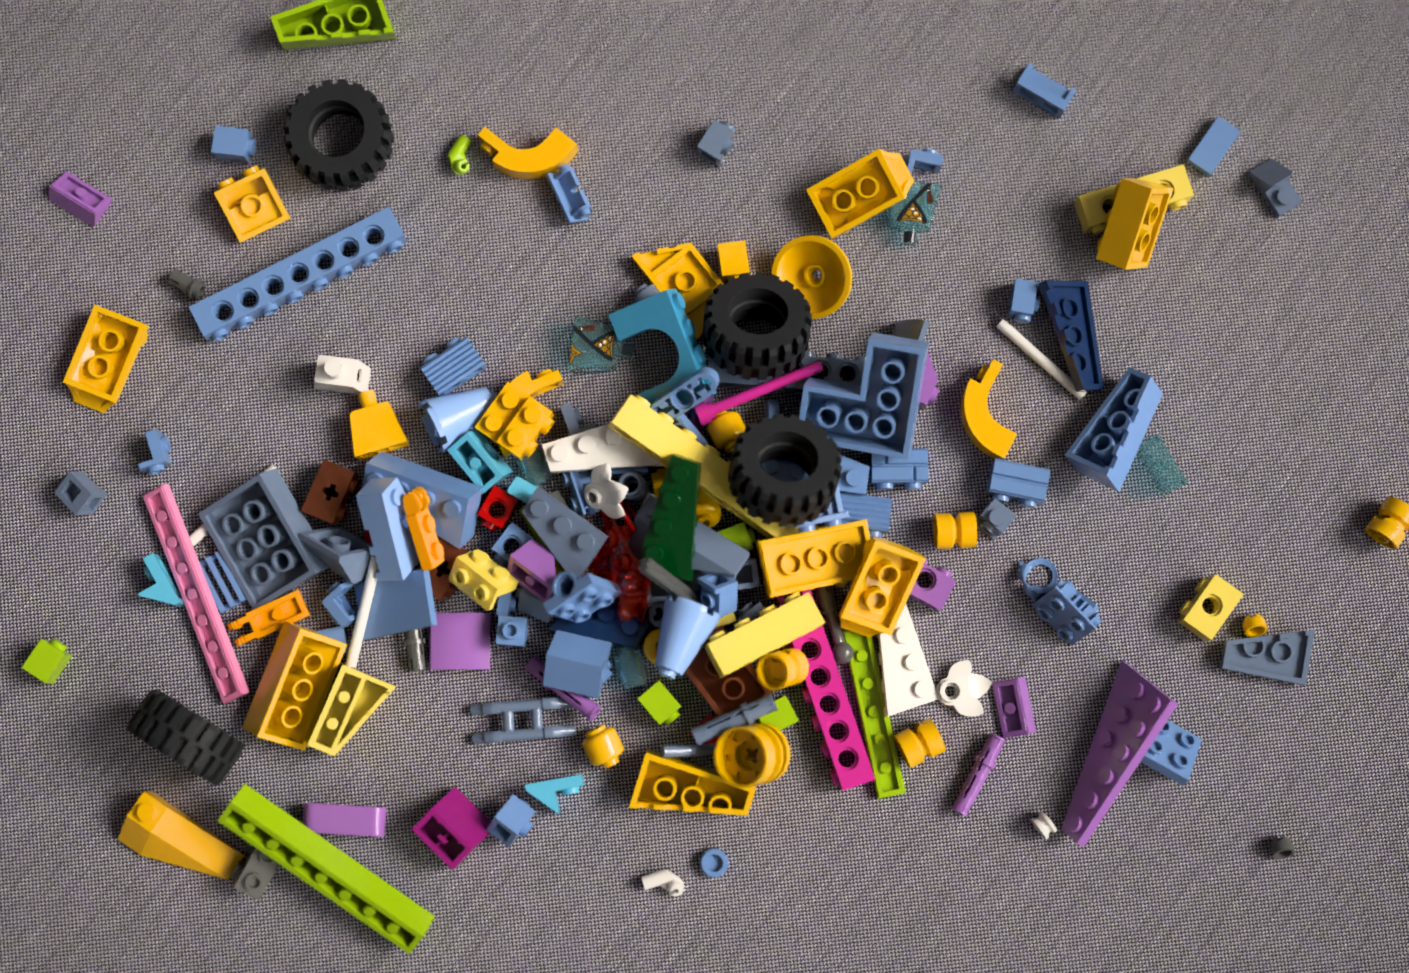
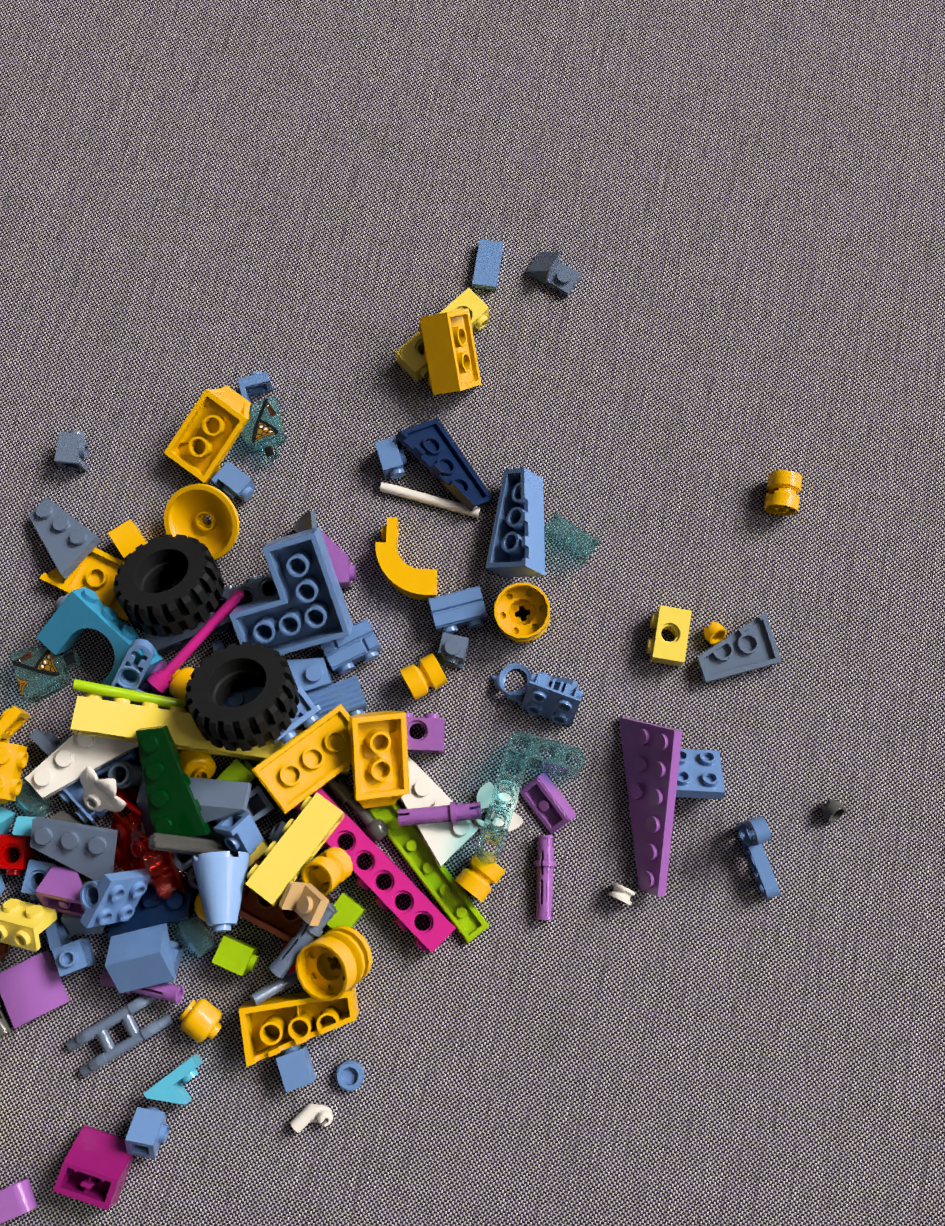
camera: 20 degrees left, 5 degrees down
(669, 830) = (296, 1067): none -> medium blue brick
(672, 224) = (63, 536): none -> sand blue wing
(675, 414) = (132, 695): none -> lime bar
(753, 687) = (305, 901): none -> tan bracket
(860, 251) = (234, 482): none -> medium blue brick
(921, 672) = (438, 814): none -> medium lavender pin
(990, 675) = (511, 784): none -> clear light blue beam
(1043, 91) = (328, 285): medium blue hinge -> none
(1093, 508) = (519, 597): none -> yellow wheel
(1191, 833) = (752, 835): none -> medium blue beam

